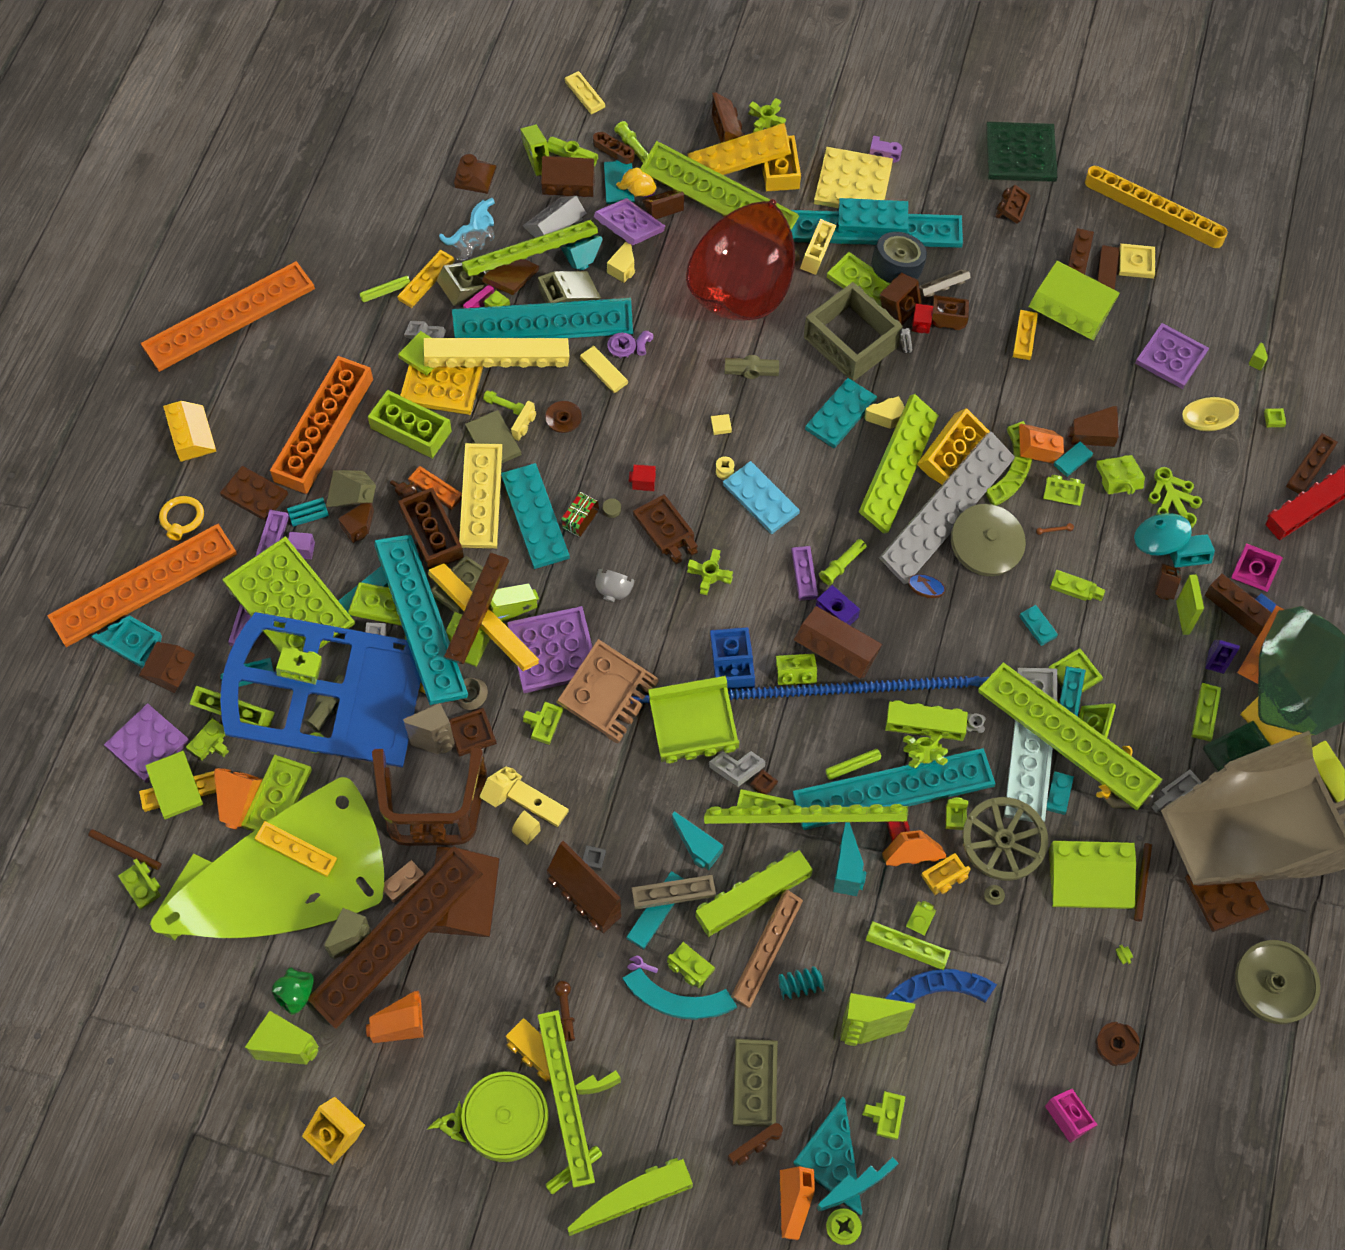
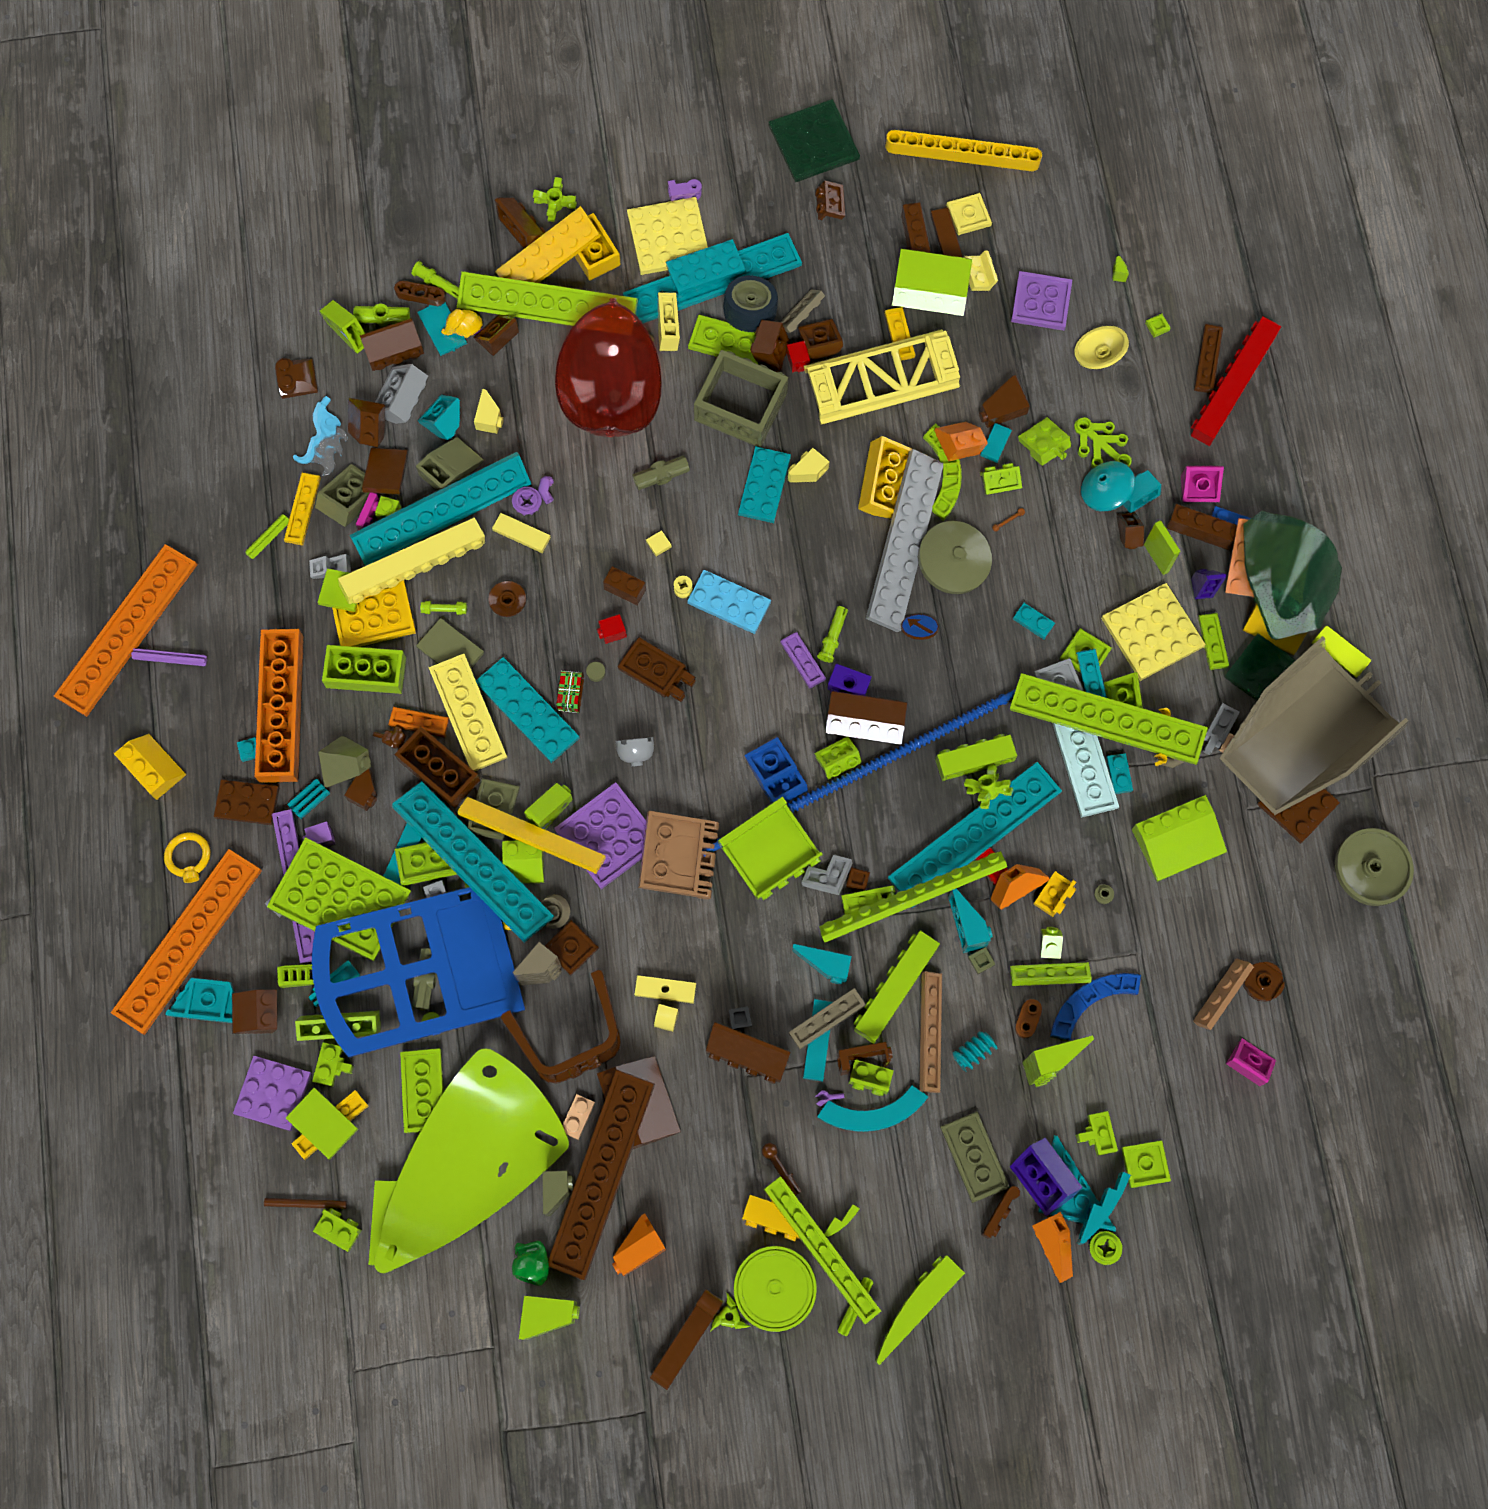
camera: 25 degrees left, 10 degrees up
(215, 645) = (290, 969): none -> lime slope
(234, 795) = (384, 1107): orange slope -> none
(252, 351) = (169, 657): none -> medium lavender axle
(275, 450) = (247, 749): none -> teal plate
(295, 849) = (467, 1133): yellow plate -> none
(308, 669) = (376, 966): lime brick -> none
(333, 1130) = (629, 1371): yellow slope -> none
(402, 1124) = (686, 1339): none -> reddish brown beam
(476, 608) = (524, 831): reddish brown plate -> none
(499, 785) = (624, 988): light yellow slope -> none
(515, 226) = (366, 421): none -> reddish brown slope
(521, 424) = (471, 626): light yellow plate -> none
(530, 247) = (392, 437): lime plate -> none
(544, 722) = (634, 909): lime hinge -> none
(584, 92) = (362, 243): light yellow tile -> none
(629, 221) = (475, 368): medium lavender plate -> none
(672, 446) = (624, 585): none -> reddish brown brick
(675, 932) = (847, 1055): none -> reddish brown window
(710, 565) = (733, 695): lime pin -> none
(814, 1129) = (1045, 1176): none -> dark purple slope
(846, 905) = (981, 960): none -> olive tile
(853, 764) = (929, 826): lime axle -> none
(869, 977) = (1029, 1018): none -> dark orange plate
(898, 464) = (842, 515): lime plate -> none
(906, 340) = (794, 387): light grey axle -> none
(920, 1164) = (1146, 1164): none -> lime plate
(956, 813) = (1040, 834): lime bracket -> none
(980, 719) = (1020, 735): light grey plate -> none
(1006, 834) = (1096, 836): olive wheel -> none
(1053, 366) = (828, 398): none -> light yellow piece
(1070, 1037) = (1223, 994): none -> medium nougat plate
(1076, 587) = (1051, 569): lime hinge -> none
(1124, 954) = (1236, 898): lime plate -> none
(1125, 311) = (982, 272): none -> light yellow bracket
(1143, 882) = (1224, 825): reddish brown bar -> none
(1150, 680) = (1153, 631): none -> light yellow plate

